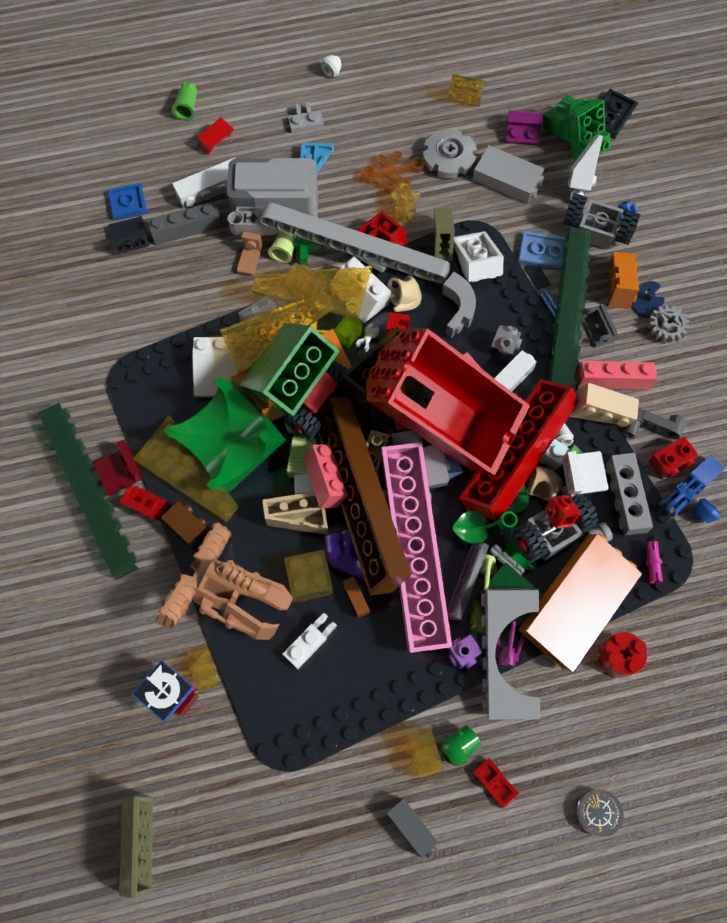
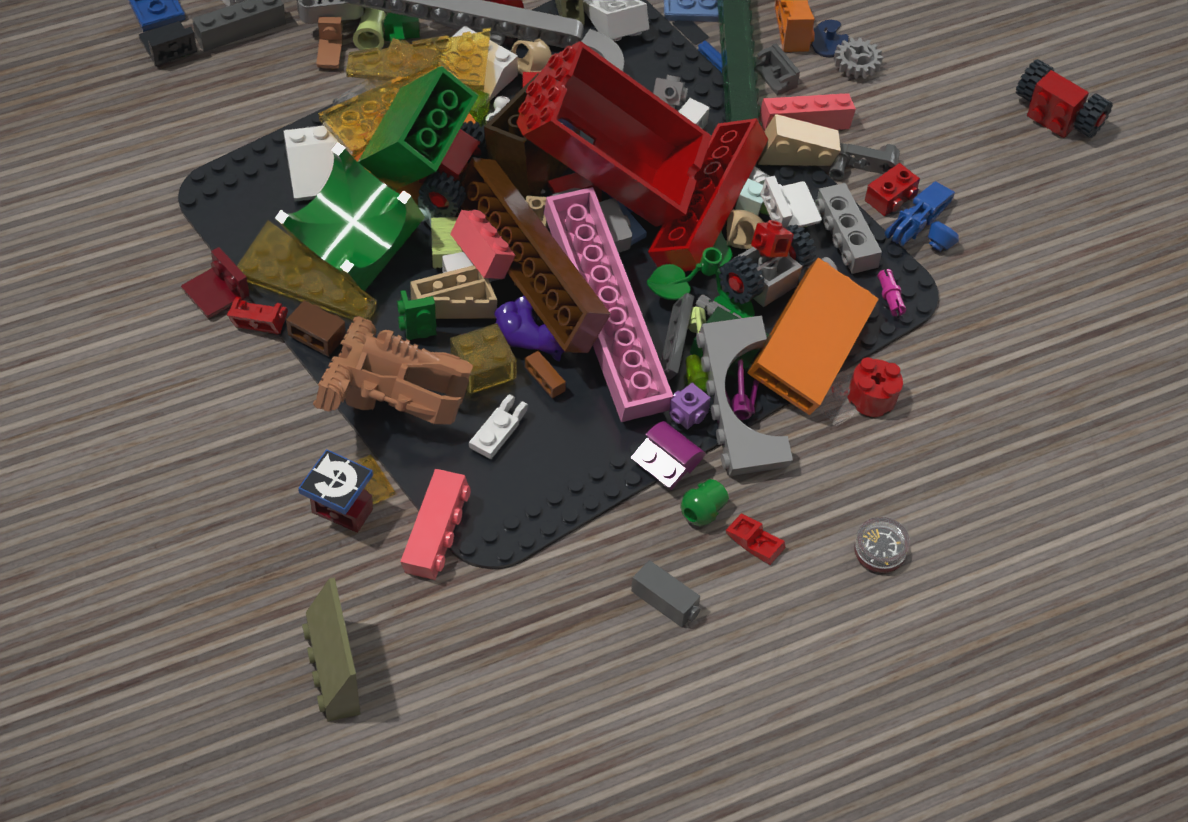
camera: 15 degrees left, 15 degrees down
(88, 491) = (183, 314): clear green brick -> none
(240, 730) = (435, 524): none -> coral brick
(262, 532) = (417, 316): none -> green bracket
(423, 753) = (662, 516): clear yellow brick -> none
(439, 694) = (667, 454): none -> magenta brick

